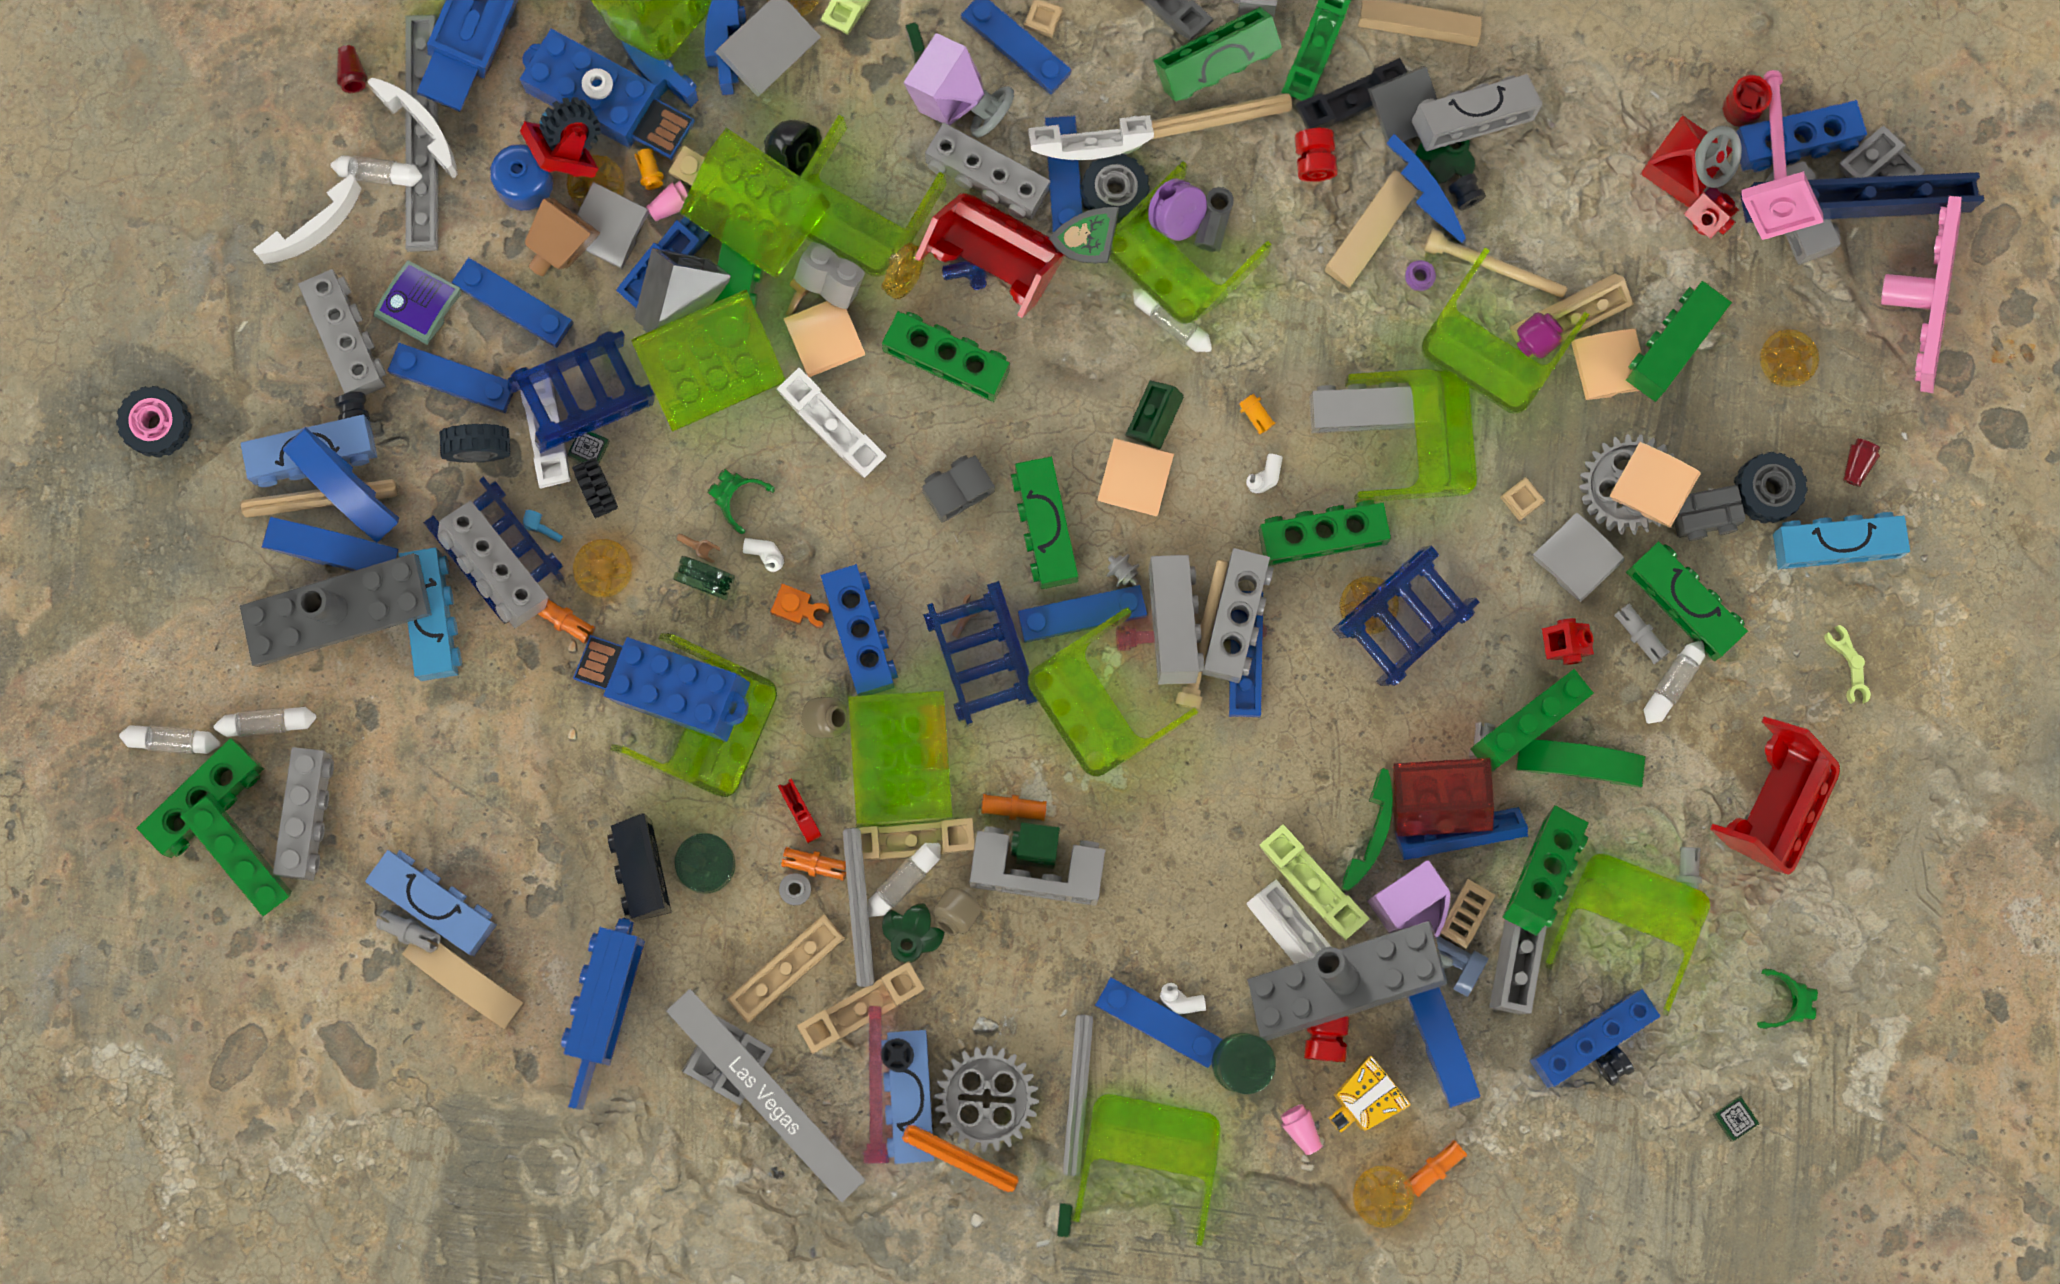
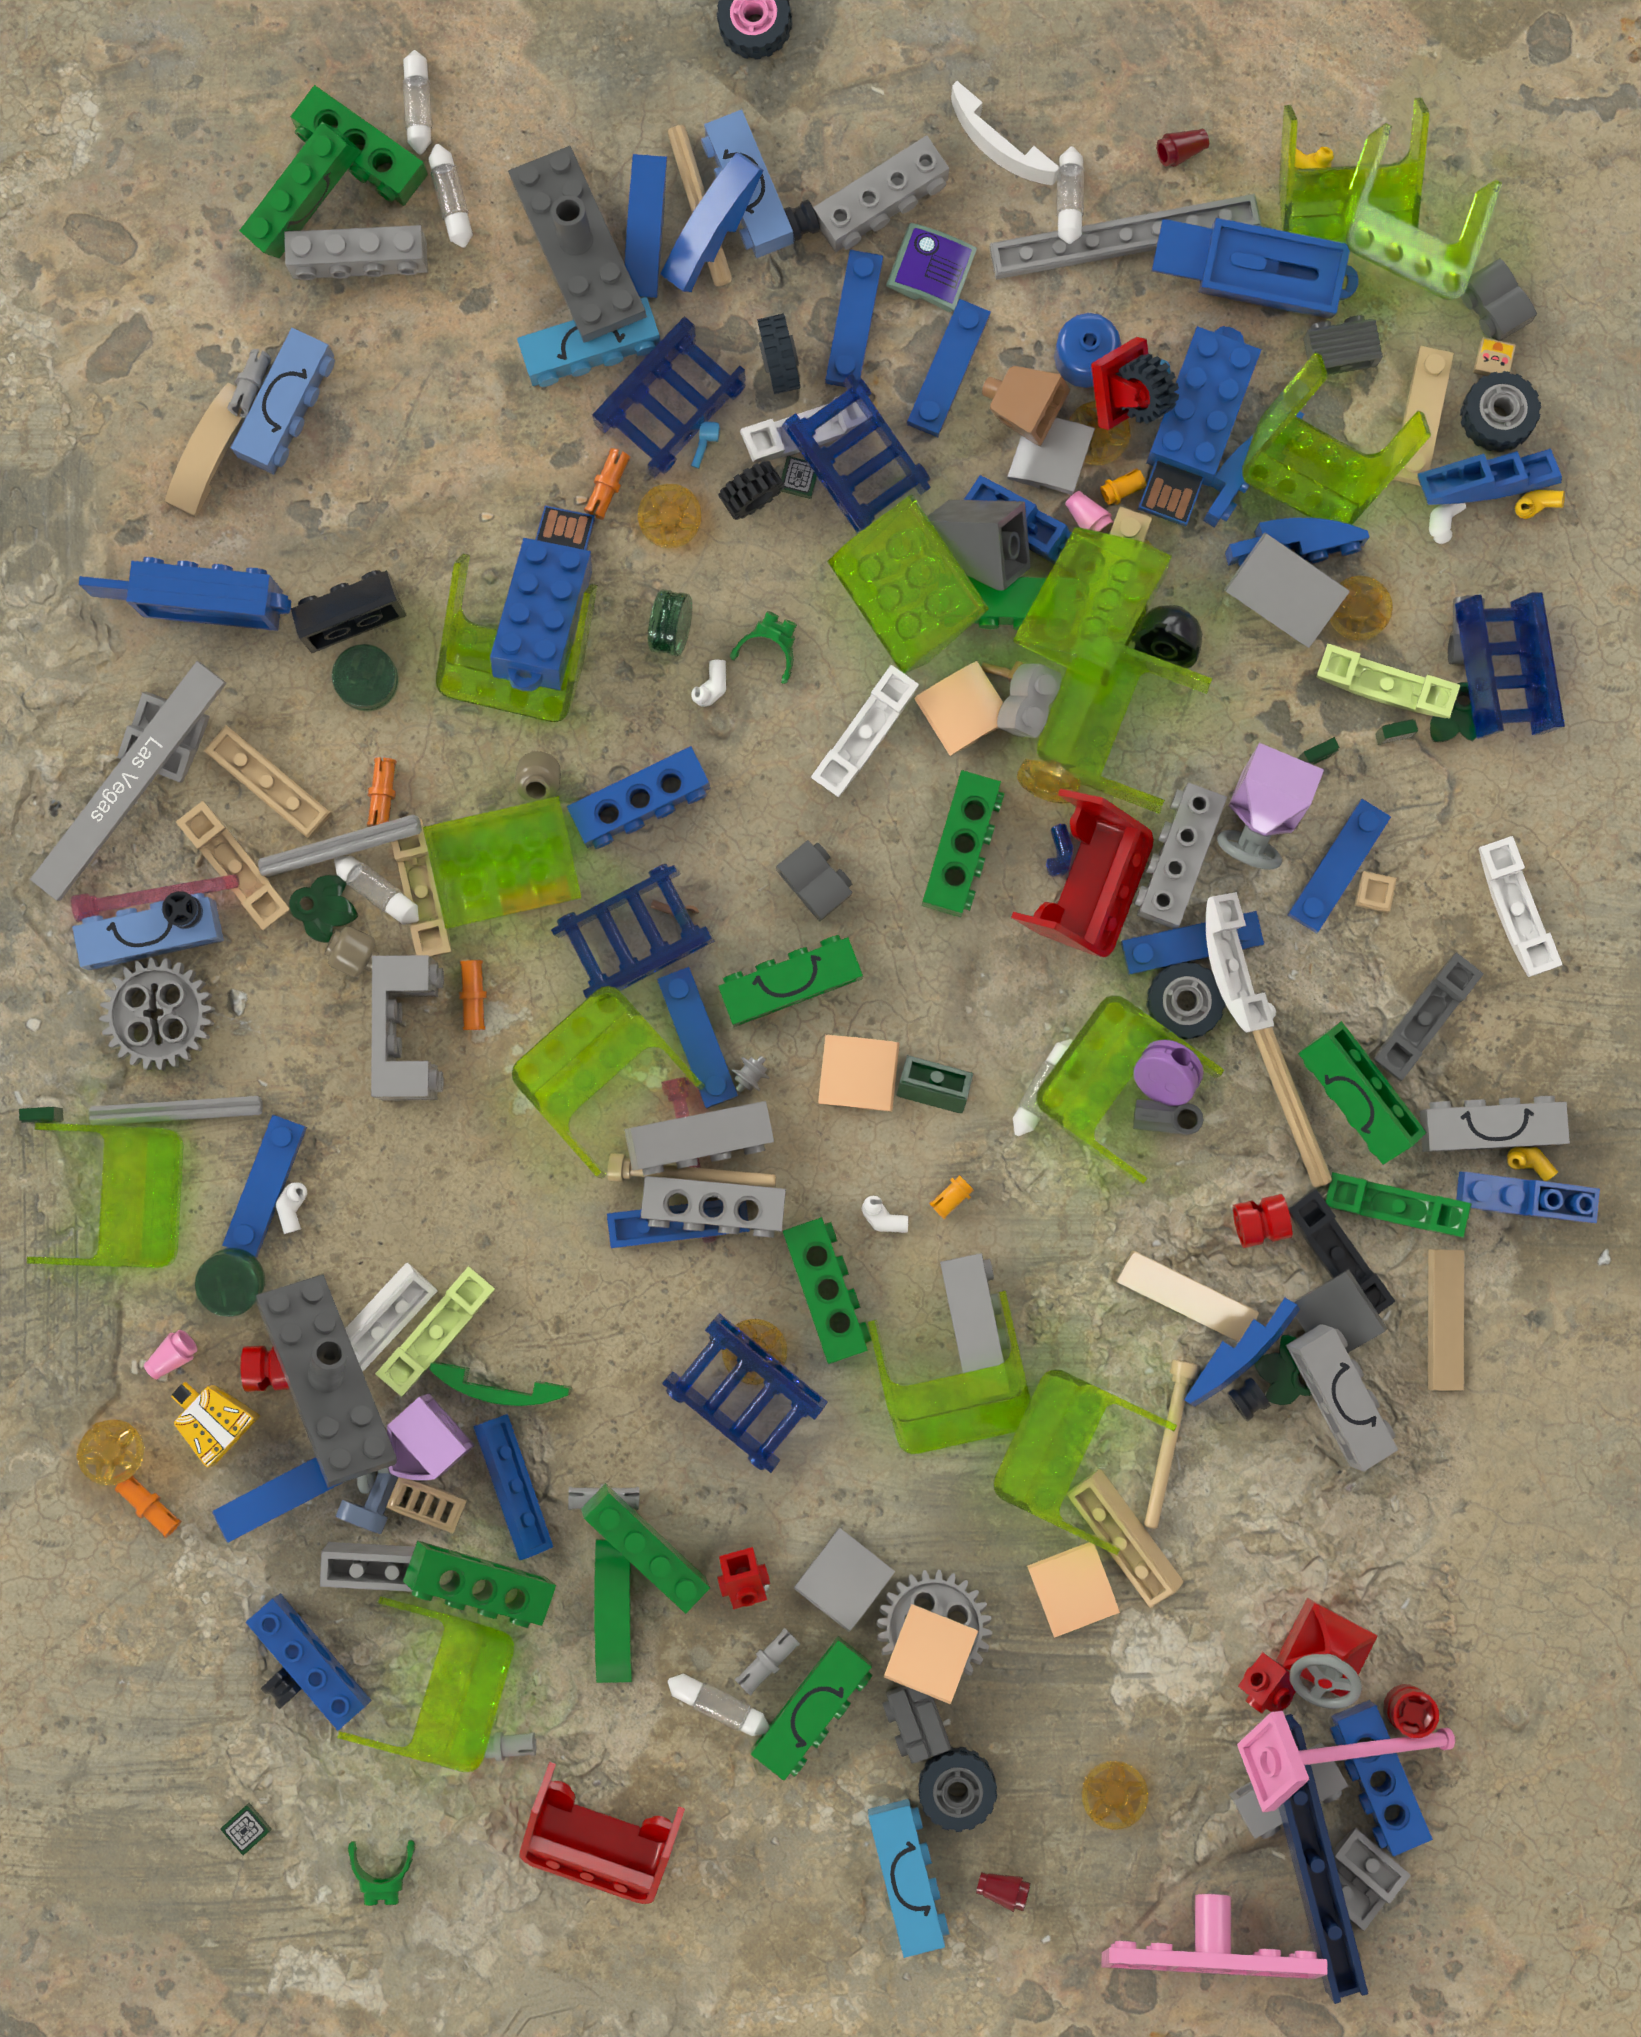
camera: 85 degrees right, 5 degrees up
(396, 98) = (1104, 258): white slope -> none
(492, 565) = (646, 395): light grey brick -> none
(597, 92) = (1197, 418): white plate -> none
(702, 548) = (706, 616): medium nougat hand -> none
(794, 605) = (660, 726): orange plate -> none
(797, 899) = (359, 784): light grey plate -> none
(799, 811) = (434, 768): red piece -> none
(960, 1158) = (87, 994): orange axle -> none
(1035, 845) = (424, 1022): dark green arch -> none
(1087, 236) = (1120, 977): shield -> none
(1422, 267) = (1153, 1359): medium lavender plate -> none
(1443, 797) = (544, 1460): clear red slope -> none
(1522, 499) = (902, 1508): tan tile -> none
(1539, 335) = (1088, 1502): magenta head -> none
(1678, 341) = (1109, 1663): green brick -> none
(1854, 660) = (772, 1909): yellowish green piece -> none

